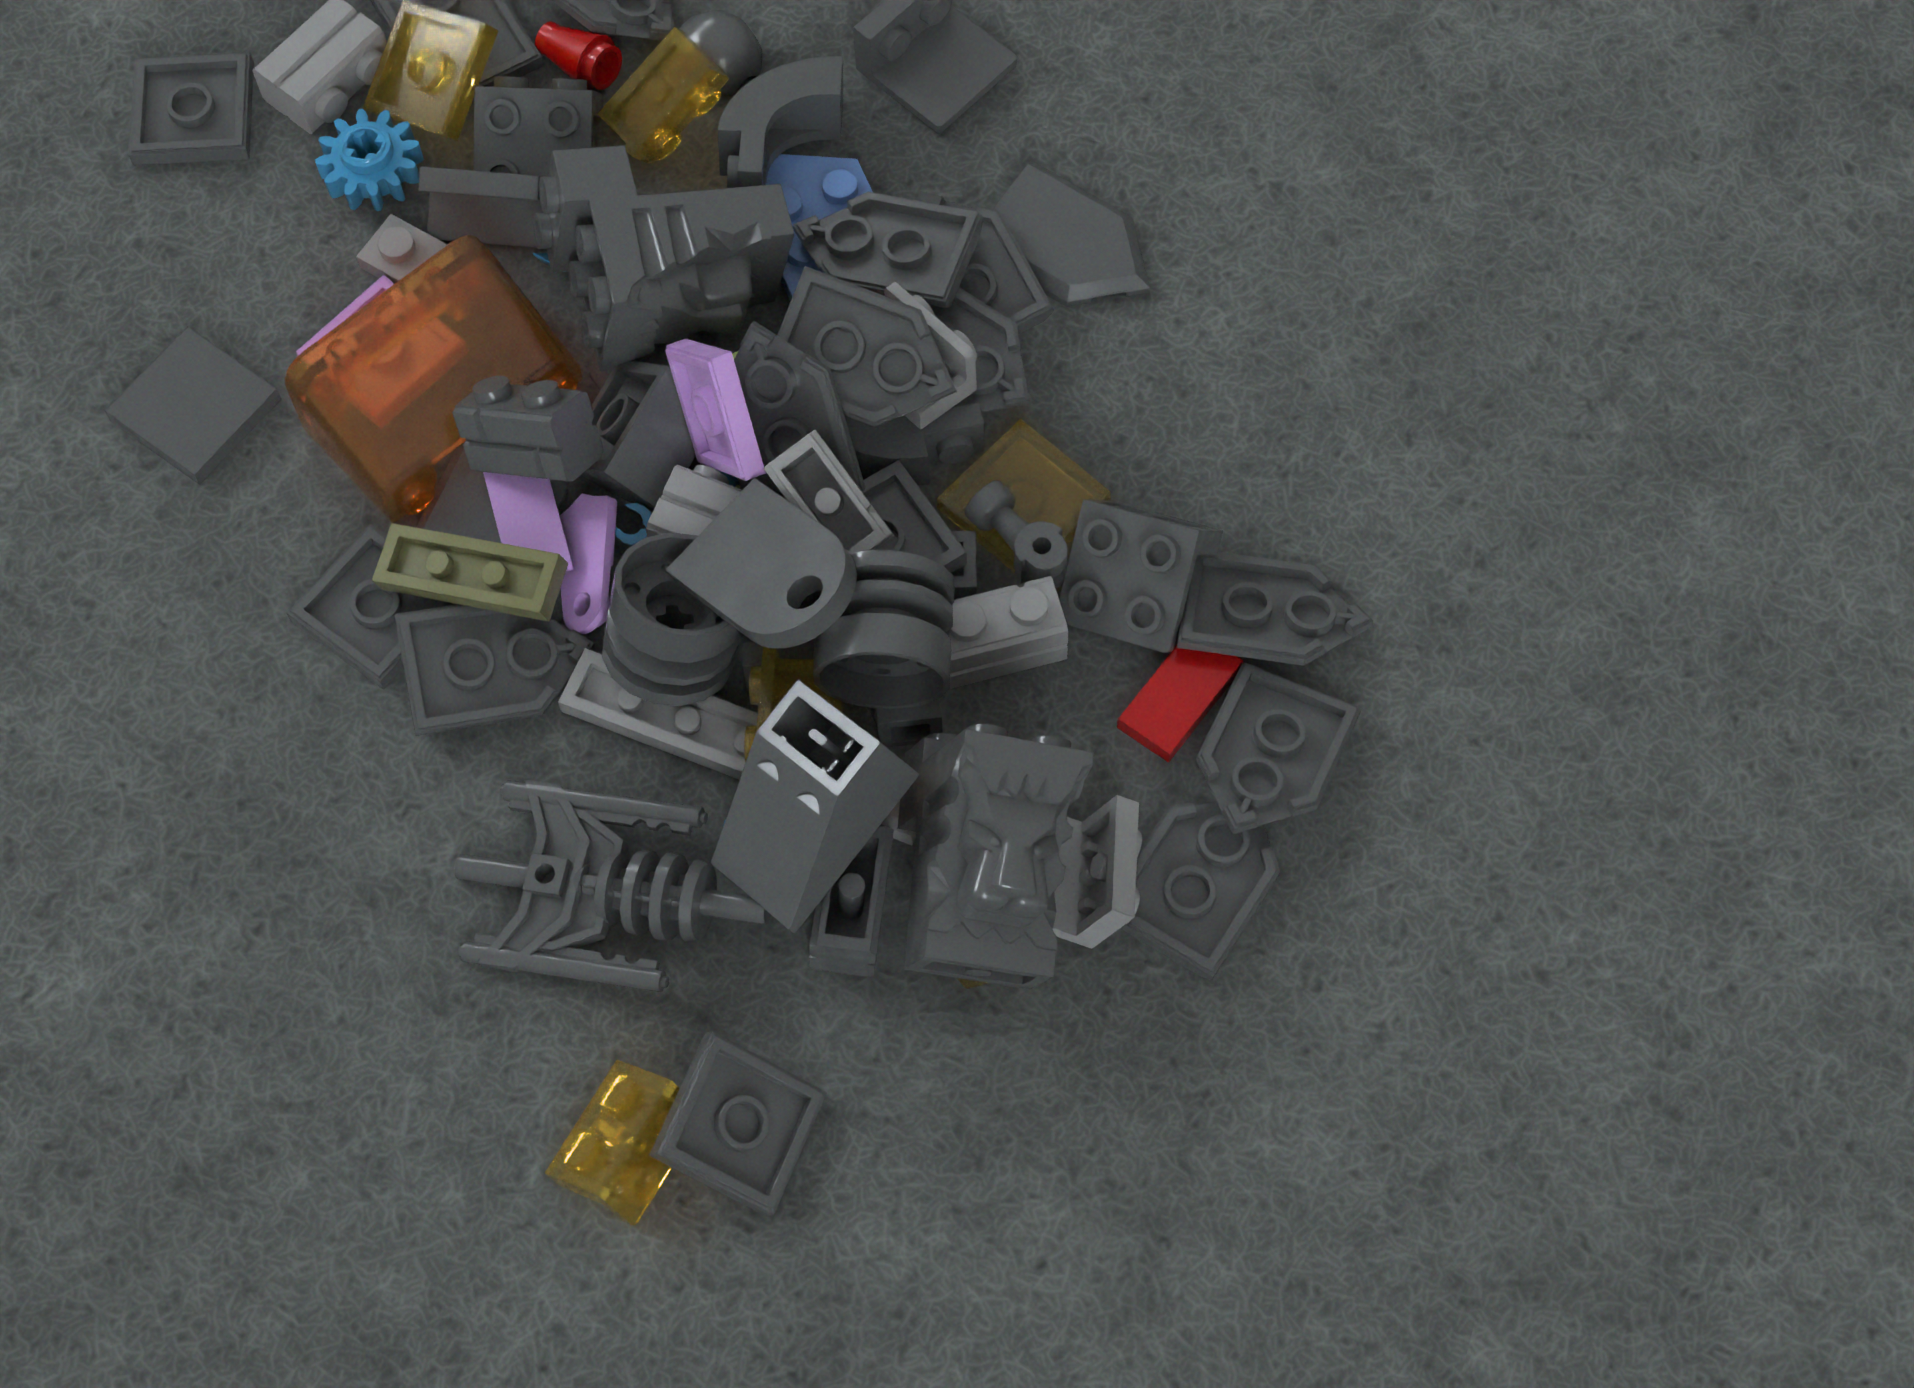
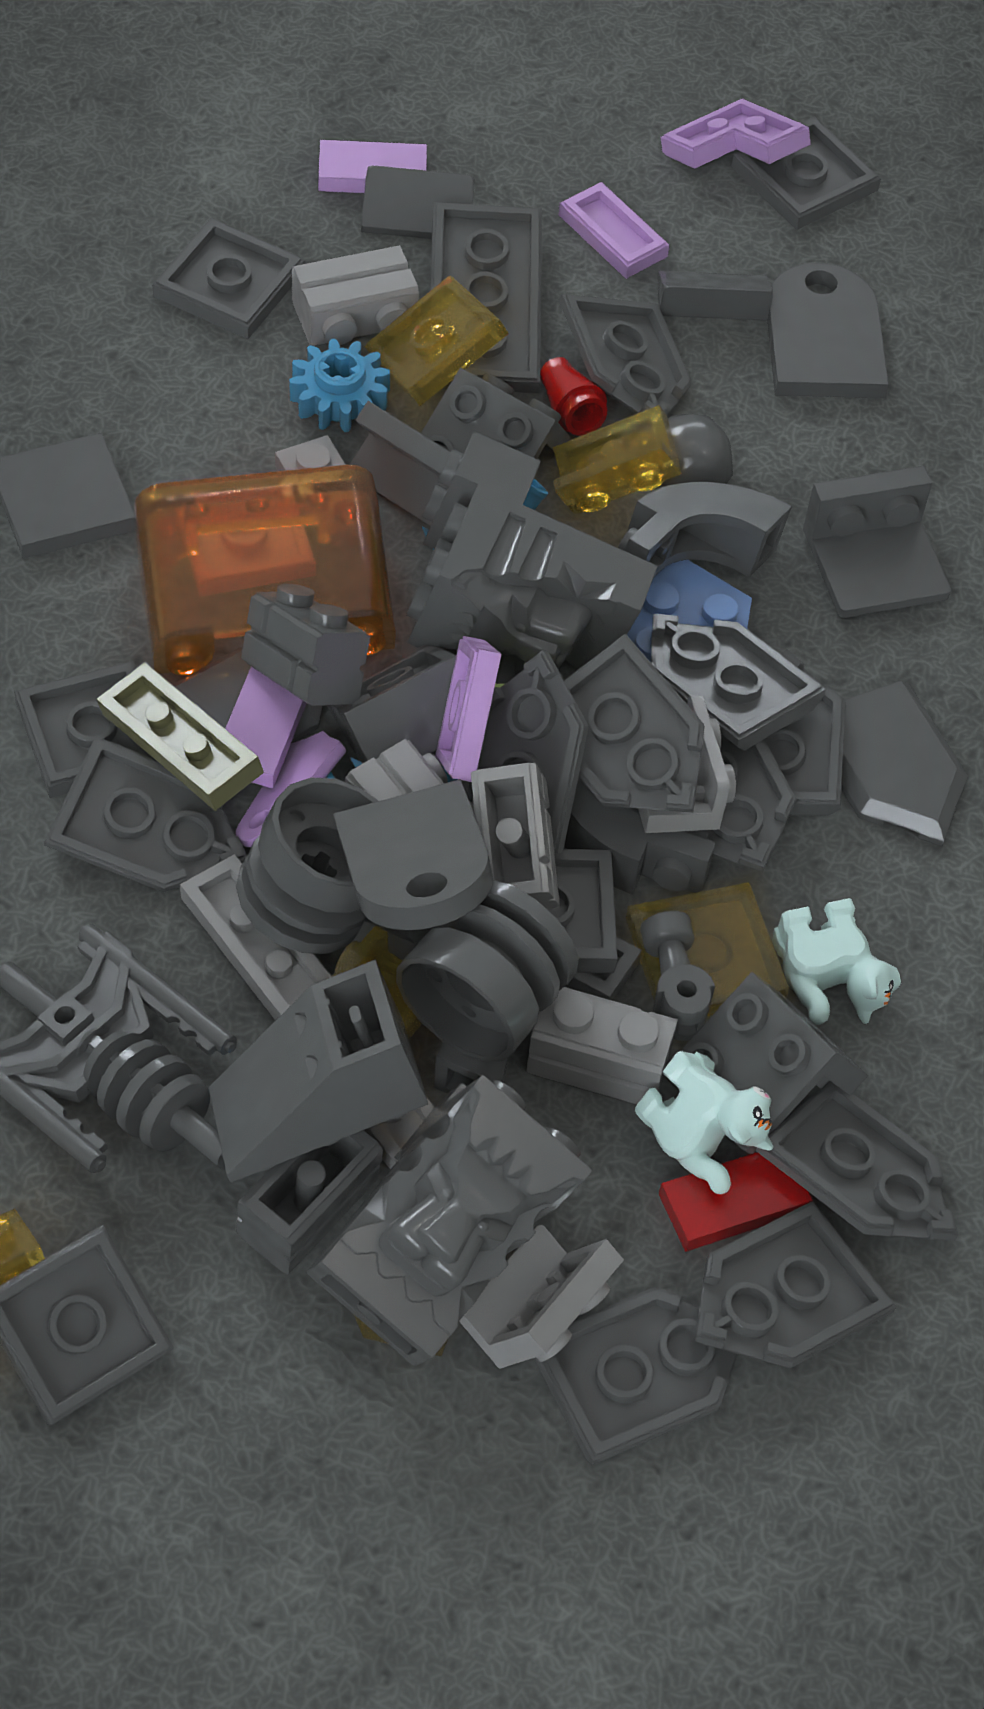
camera: 25 degrees right, 10 degrees down
(1118, 645) = (702, 1115): none -> light aqua animal
(1127, 444) = (830, 958): none -> light aqua animal

